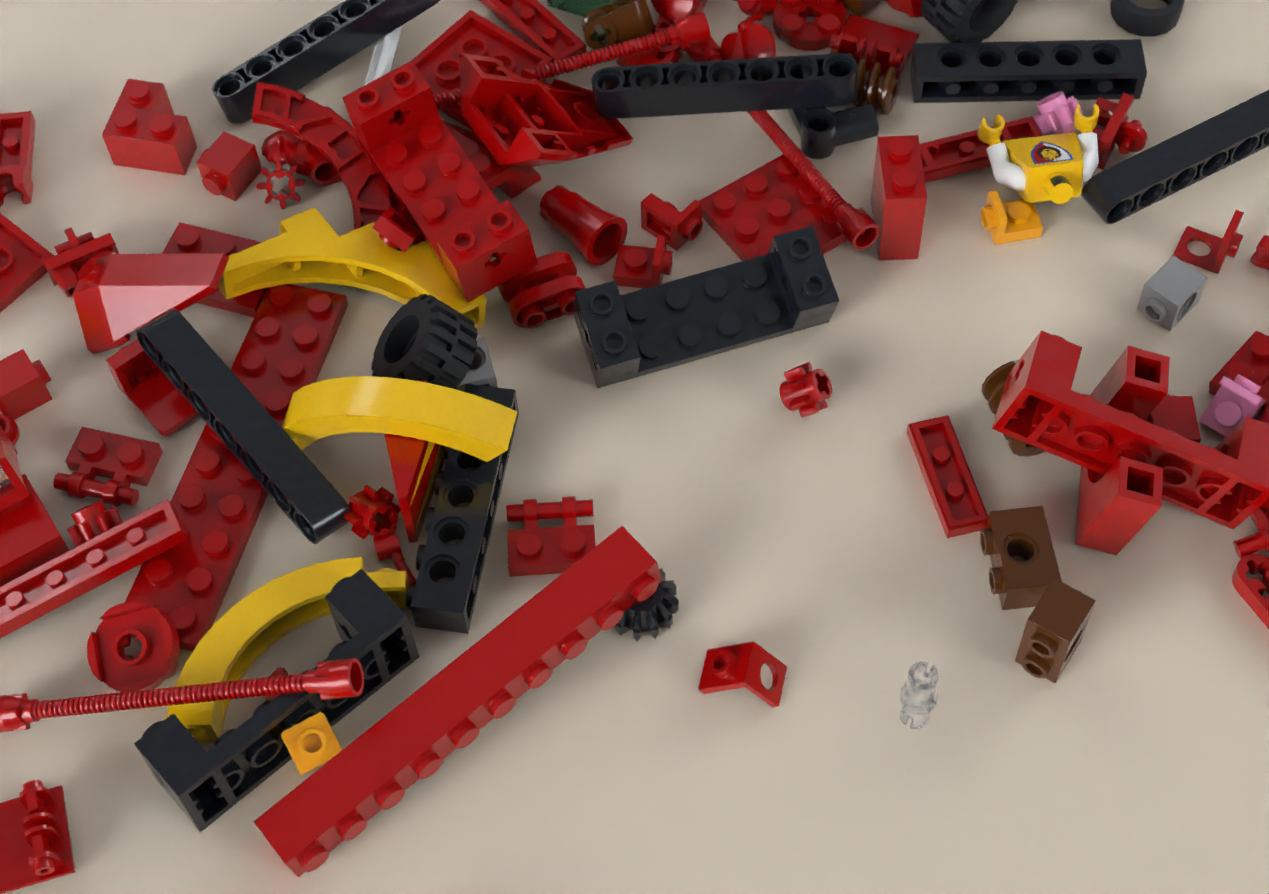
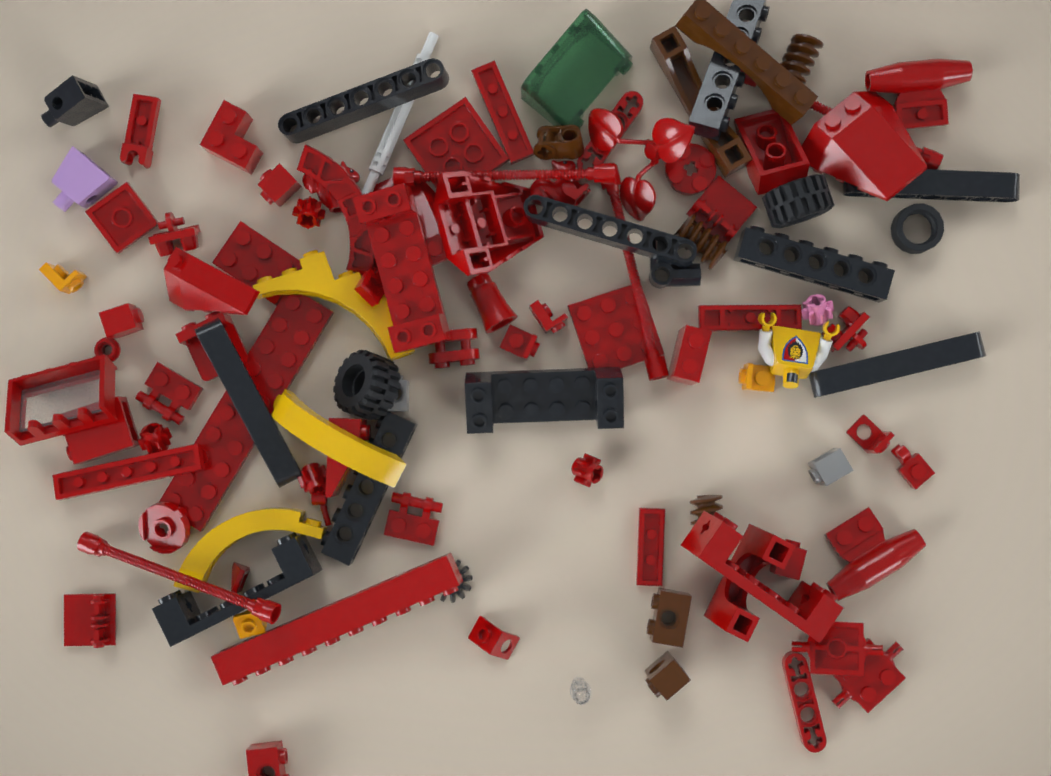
camera: 15 degrees right, 30 degrees up
(1232, 404) = (829, 559): bright pink bracket -> none

